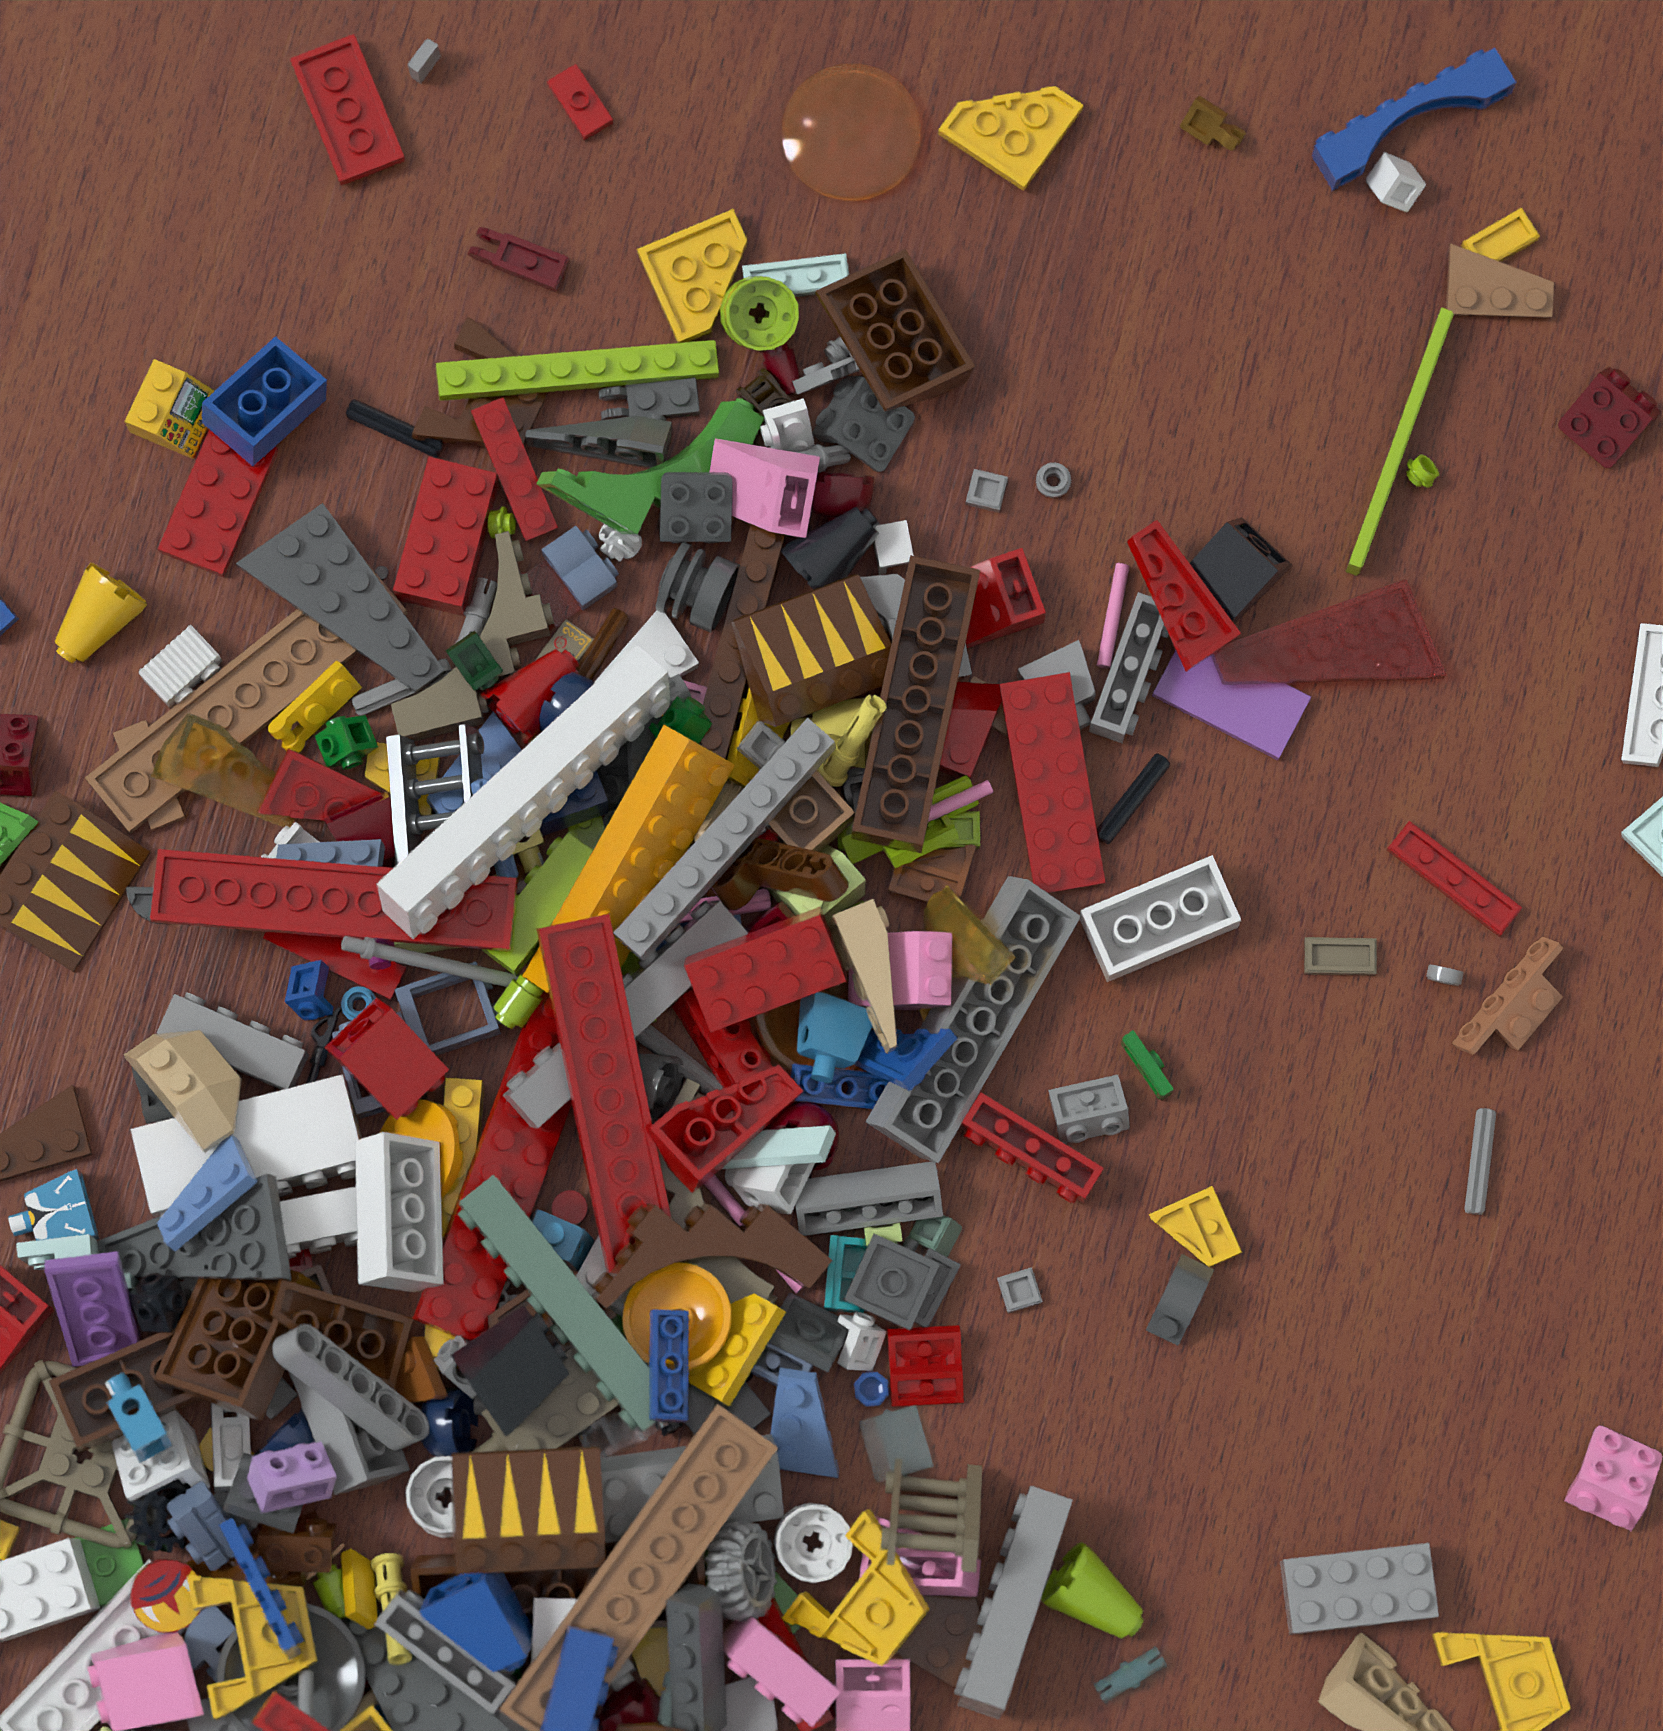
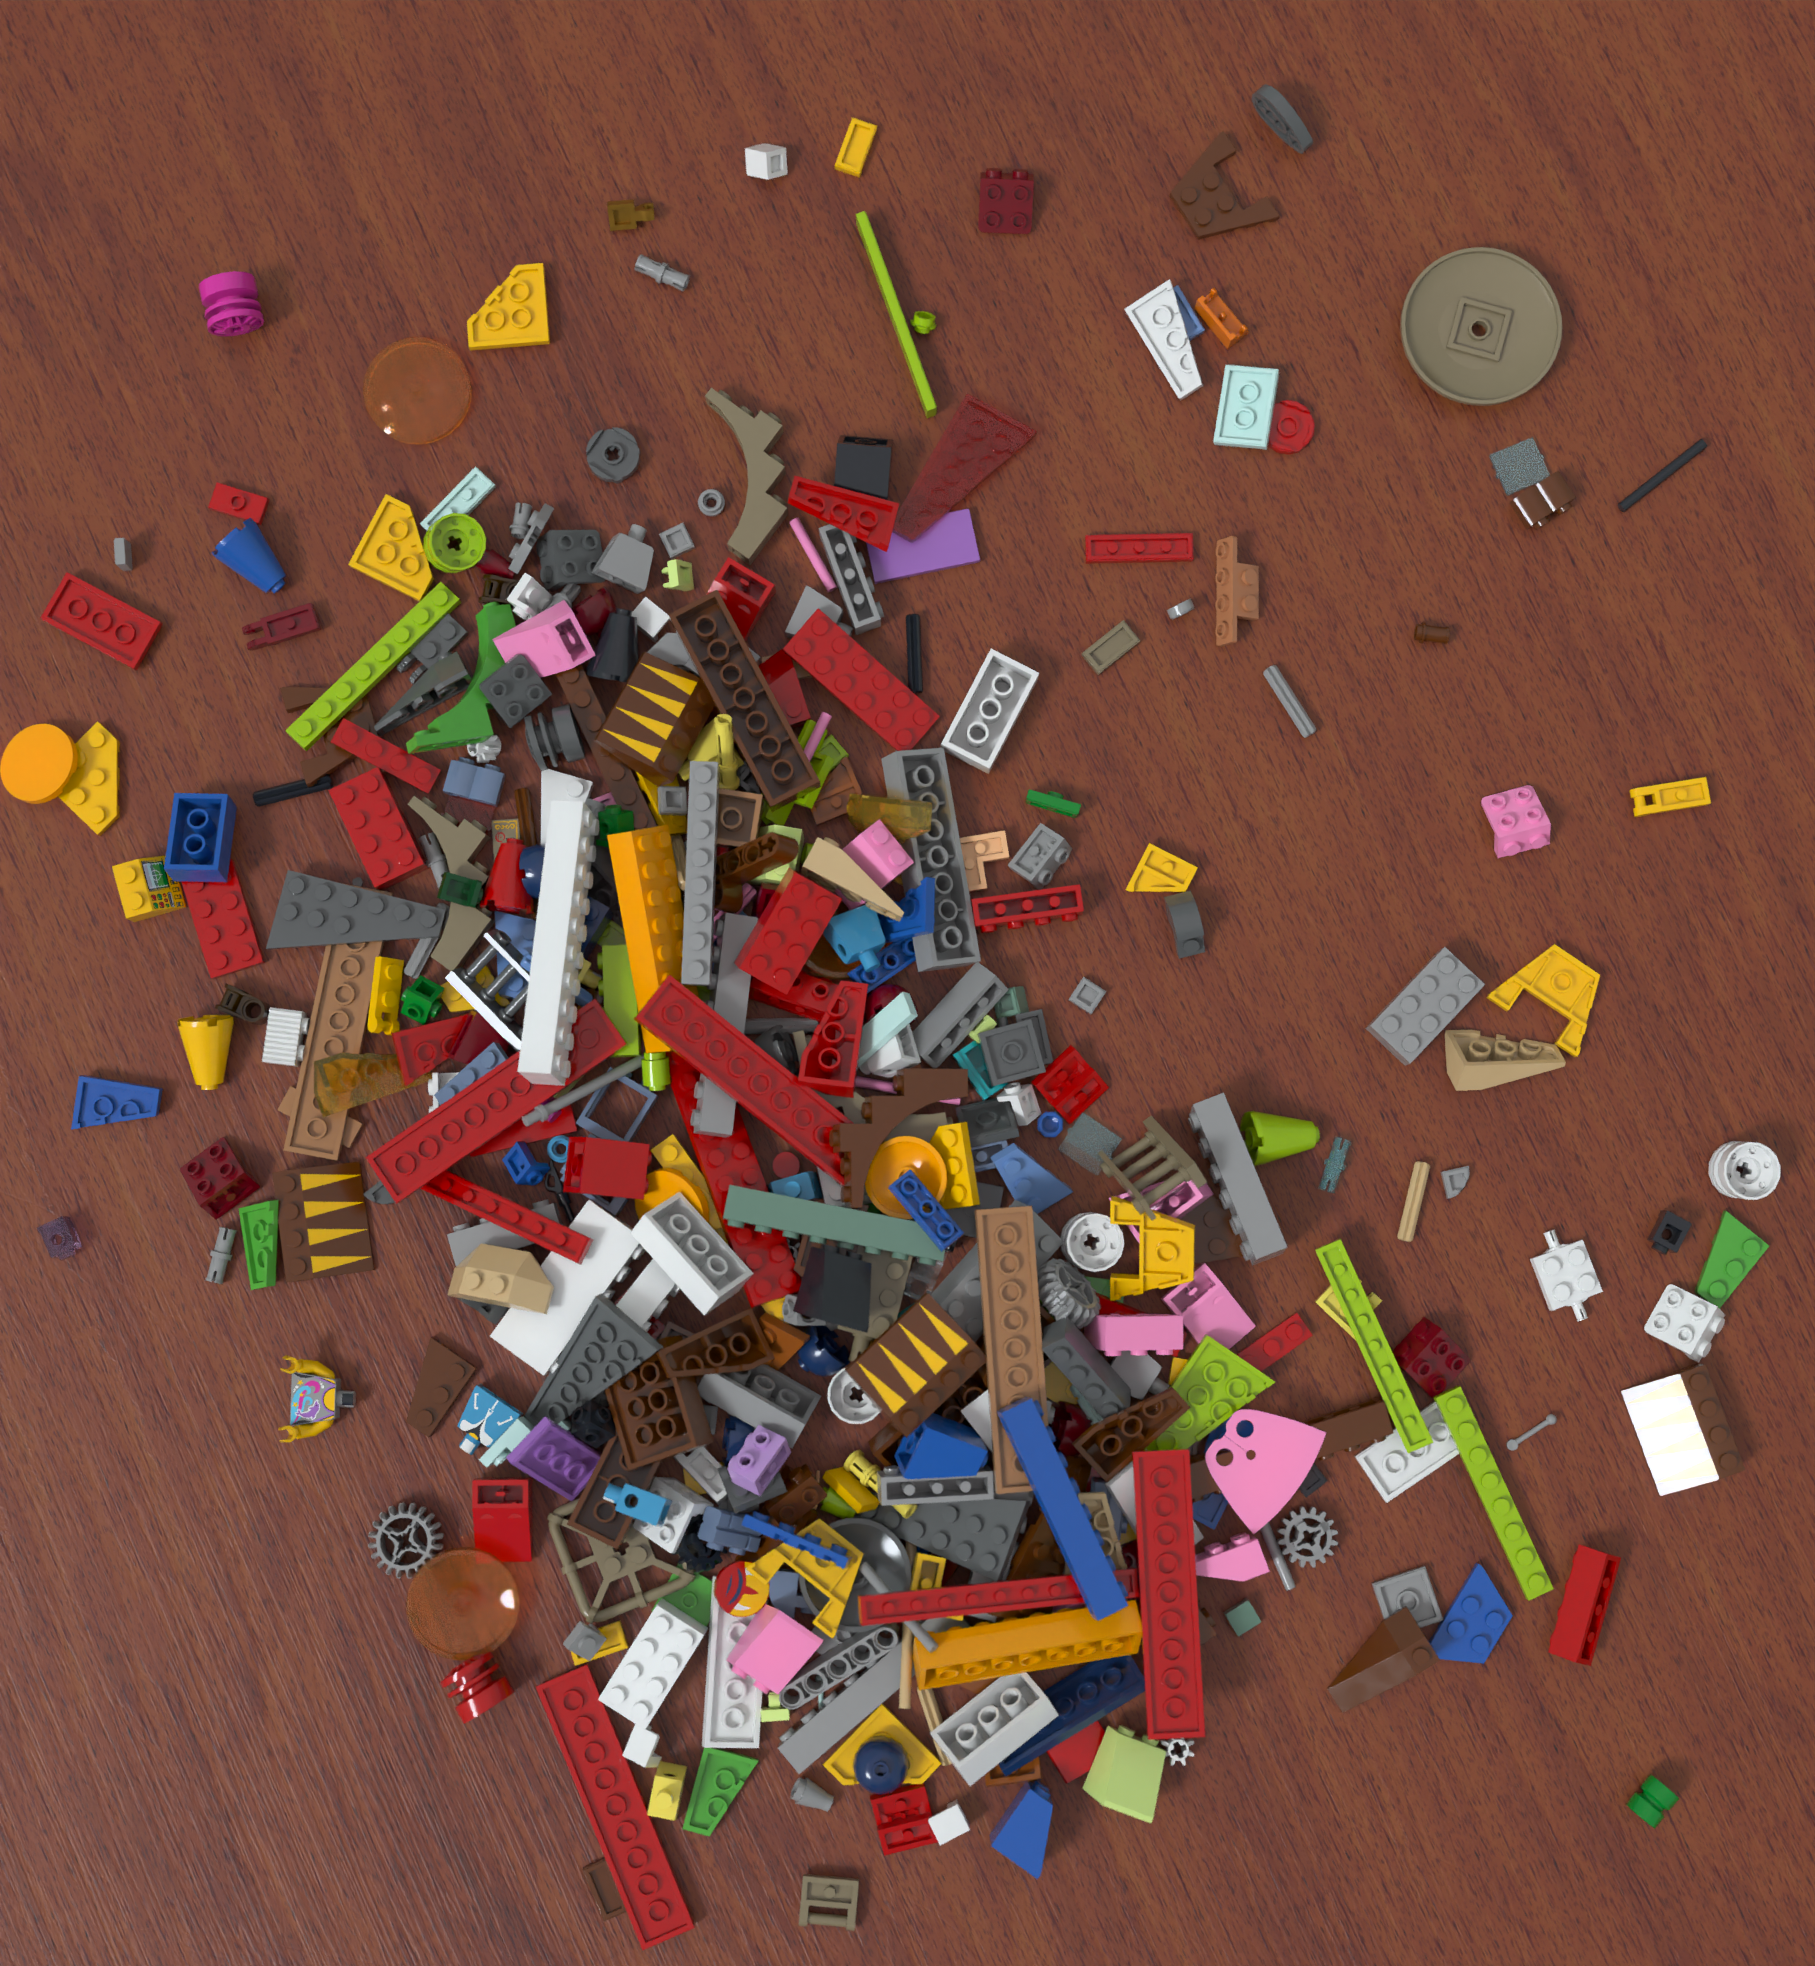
camera: 40 degrees left, 5 degrees up
(165, 598) = (240, 1004): none -> dark brown piece
(168, 200) = (38, 763): none -> light orange tile
(205, 254) = (95, 785): none -> yellow plate
(211, 1190) = (570, 1333): medium blue wing -> none
(251, 1026) = (510, 1216): none -> red tile
(350, 1387) = (750, 1379): light grey beam -> none
(501, 521) = (404, 794): lime plate -> none
(547, 165) = (251, 557): none -> blue cone
(896, 332) = (546, 488): reddish brown slope -> none
(918, 469) = (626, 560): none -> light grey torso
(959, 527) = (679, 575): none -> yellowish green tile
(1004, 336) = (615, 470): none -> dark grey plate
(1029, 1050) = (979, 850): none -> light nougat plate
(1095, 530) = (756, 437): none -> dark tan arch
(1196, 210) = (662, 272): none -> light grey pin
(1473, 85) = (763, 67): blue arch -> none
(1493, 288) = (875, 178): medium nougat wing -> none

